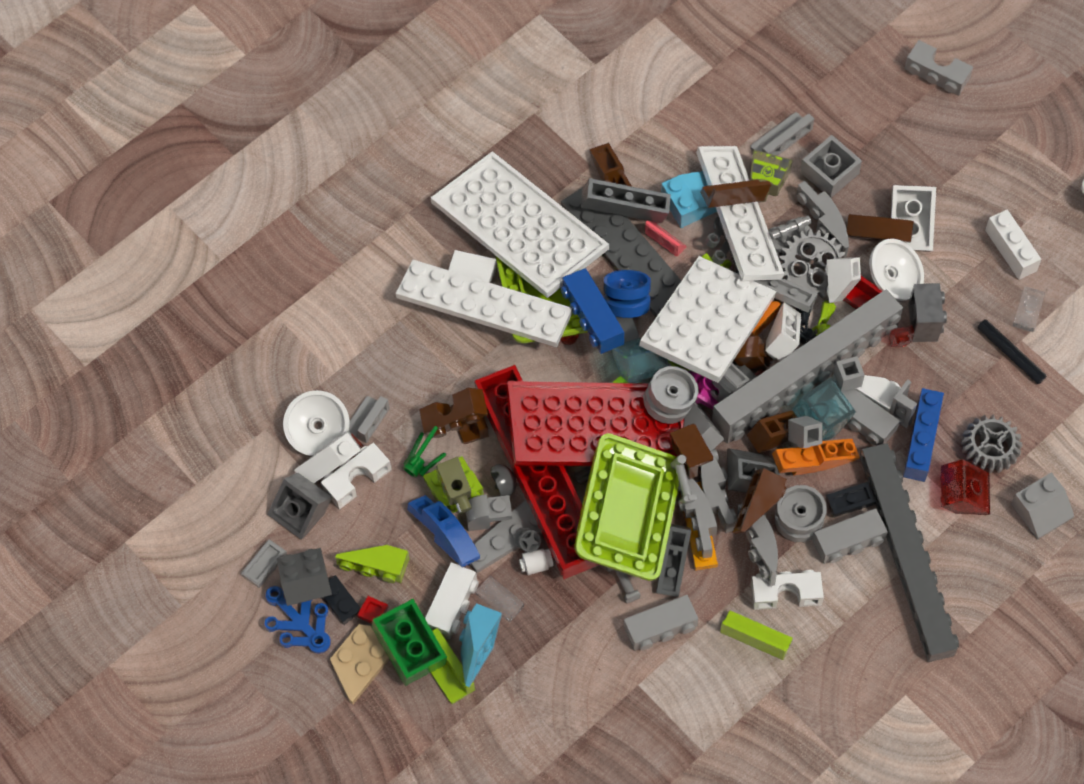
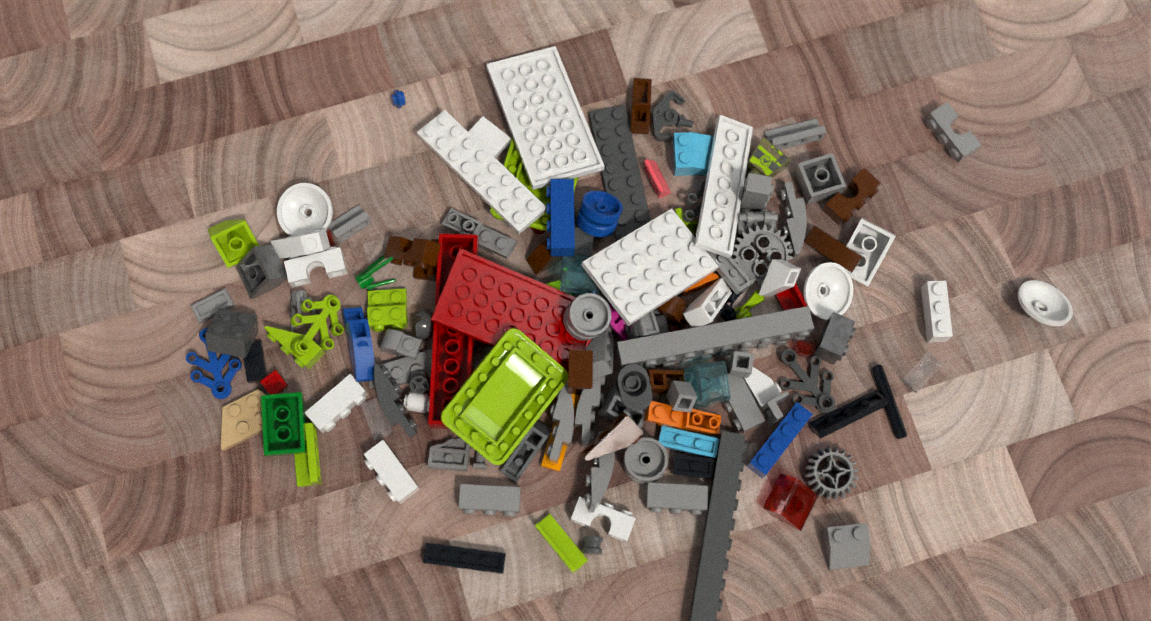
camera: 20 degrees right, 10 degrees up
(253, 486) = (232, 240): none -> lime slope
(354, 272) = (398, 99): none -> blue plate
(358, 517) = (297, 298): none -> light grey plant
(392, 509) = (319, 323): none -> lime plant
(450, 477) = (380, 304): olive torso -> none
(478, 639) = (339, 448): medium azure slope -> none
(502, 564) = (387, 395): none -> dark grey slope
(529, 368) = (488, 239): none -> light grey slope
(544, 642) = (390, 472): none -> white brick
(590, 363) = (541, 258): none -> reddish brown slope
(597, 598) = (450, 455): none -> light grey wing
(625, 200) = (637, 135): dark grey brick -> none
(641, 173) = (664, 115): none -> dark grey piece
(665, 693) = (464, 558): none -> black plate
(678, 464) = (563, 378): light grey piece -> none
(735, 193) = (725, 167): reddish brown panel -> none
(754, 442) = (635, 387): none -> dark grey piece
(776, 203) = (756, 192): none -> light grey brick
(789, 620) = (592, 545): none -> dark grey wheel
(835, 476) = (689, 442): none -> medium azure plate
(866, 186) = (841, 208): none -> reddish brown arch
(923, 368) = (809, 383): none -> dark grey plant
(978, 380) = (848, 414): none -> black plate

